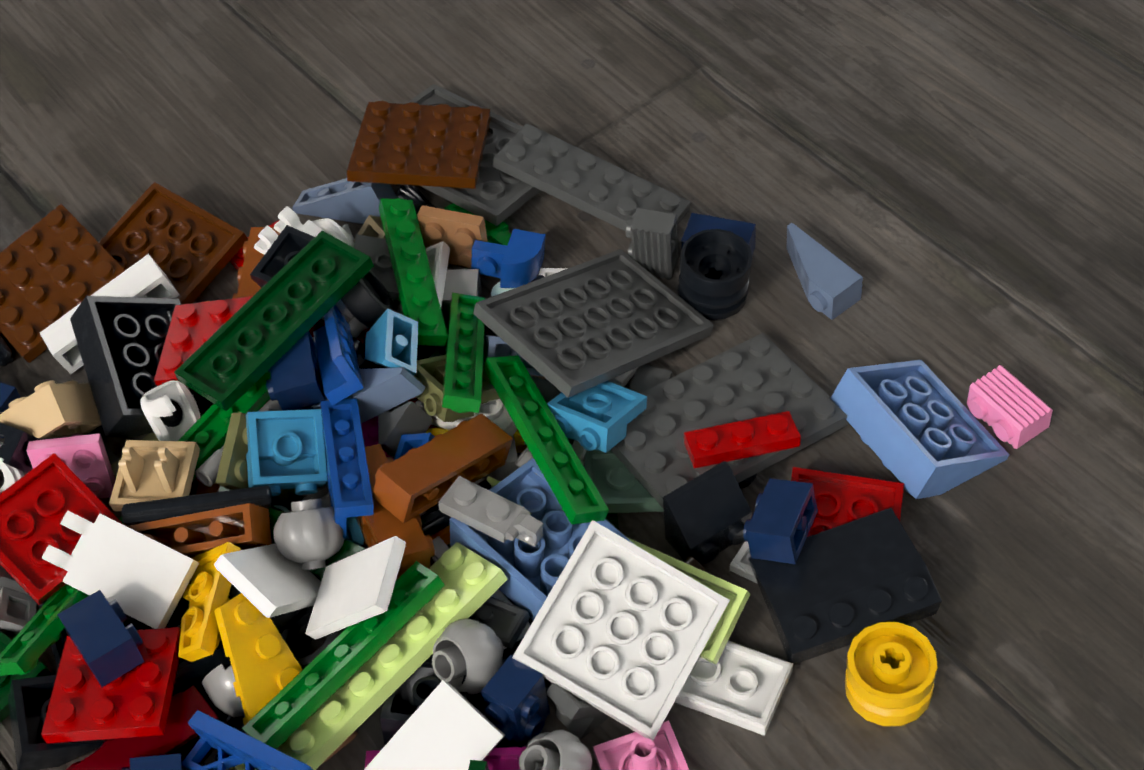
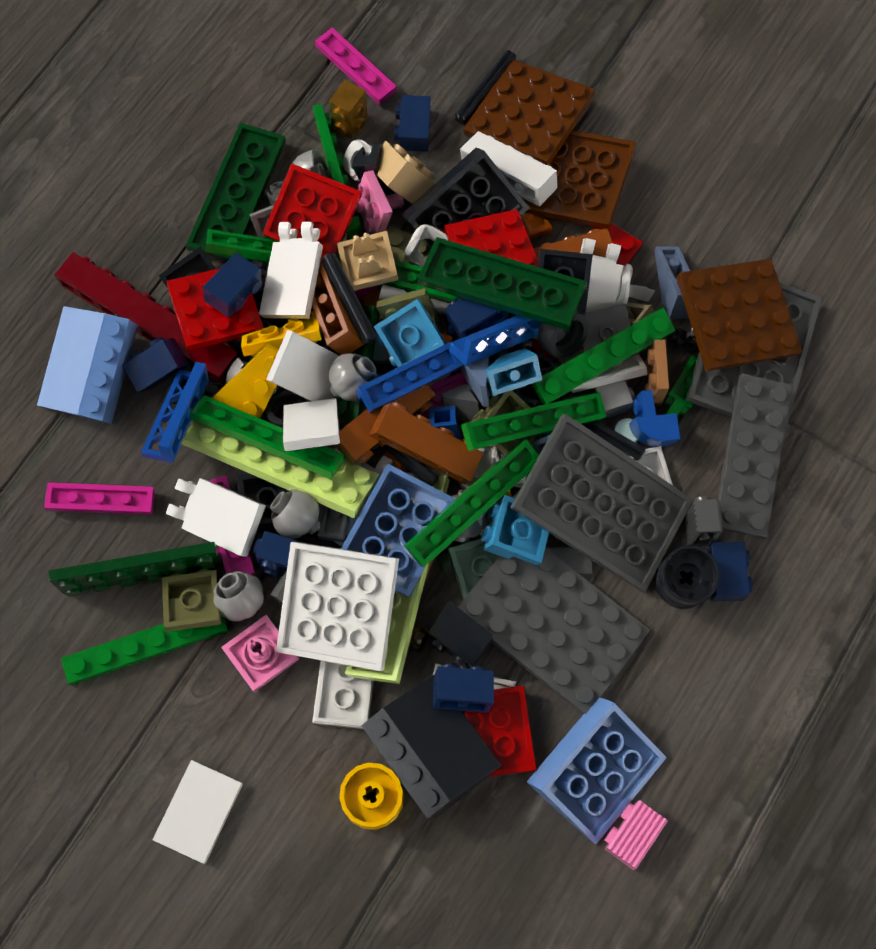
camera: 65 degrees right, 20 degrees up
(490, 513) = (398, 487): light grey hinge -> none
(741, 439) = (528, 642): red plate -> none
(825, 279) = (718, 663): sand blue slope -> none

